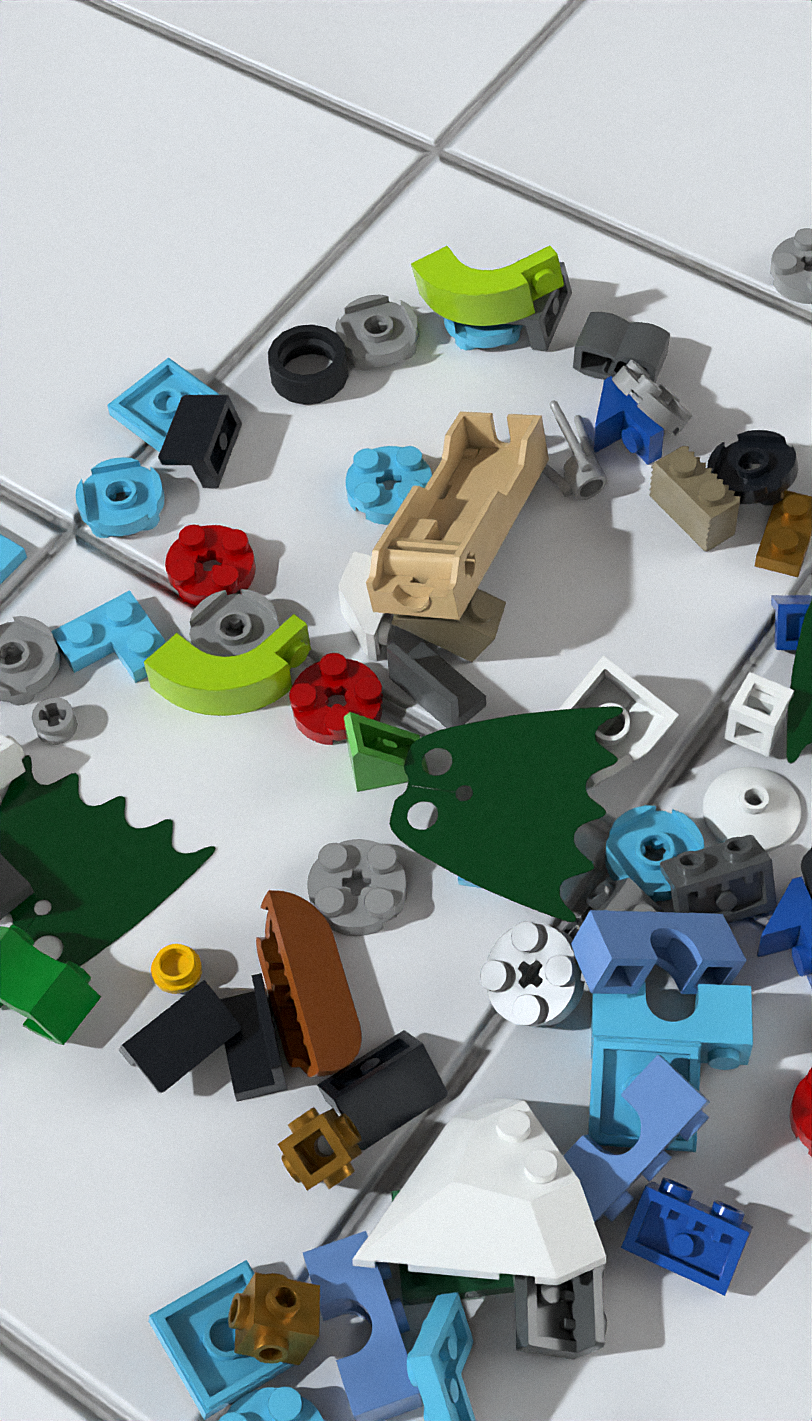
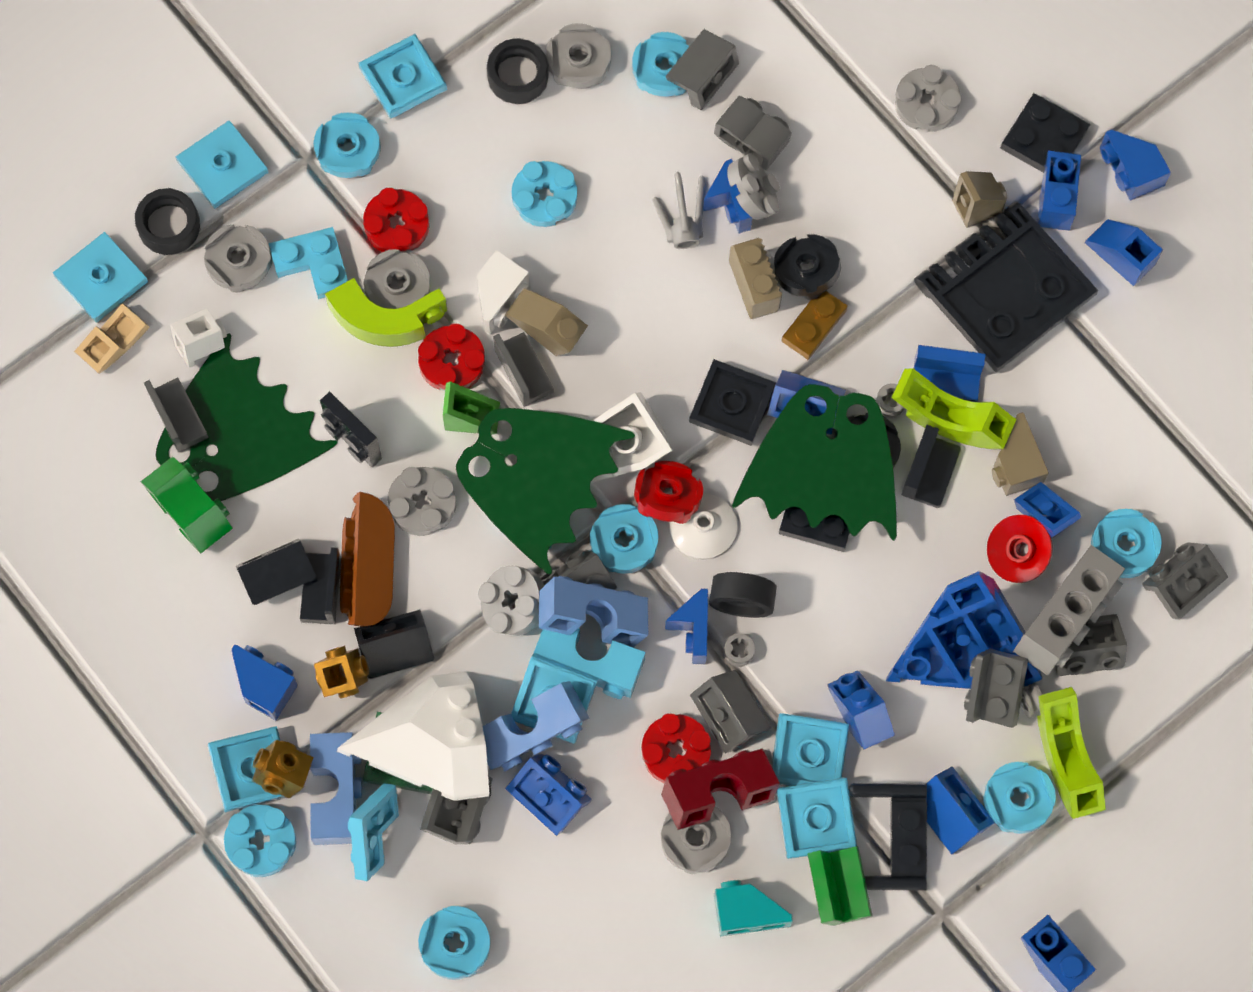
camera: 10 degrees right, 15 degrees up
(49, 708) = (247, 305): light grey bush -> none
(176, 968) = (287, 522): yellow plate -> none
(202, 436) = (419, 113): black panel -> none
(207, 1201) = (261, 683): none -> blue slope
(230, 816) = (345, 425): none -> black plate
(456, 524) = (577, 248): tan piece -> none
(486, 295) = (662, 61): lime arch -> none
(711, 785) = (666, 507): none -> red plate
(722, 879) = (657, 573): dark grey bracket -> none
(725, 644) = (732, 402): none -> black plate
(758, 714) = (728, 463): white brick -> none

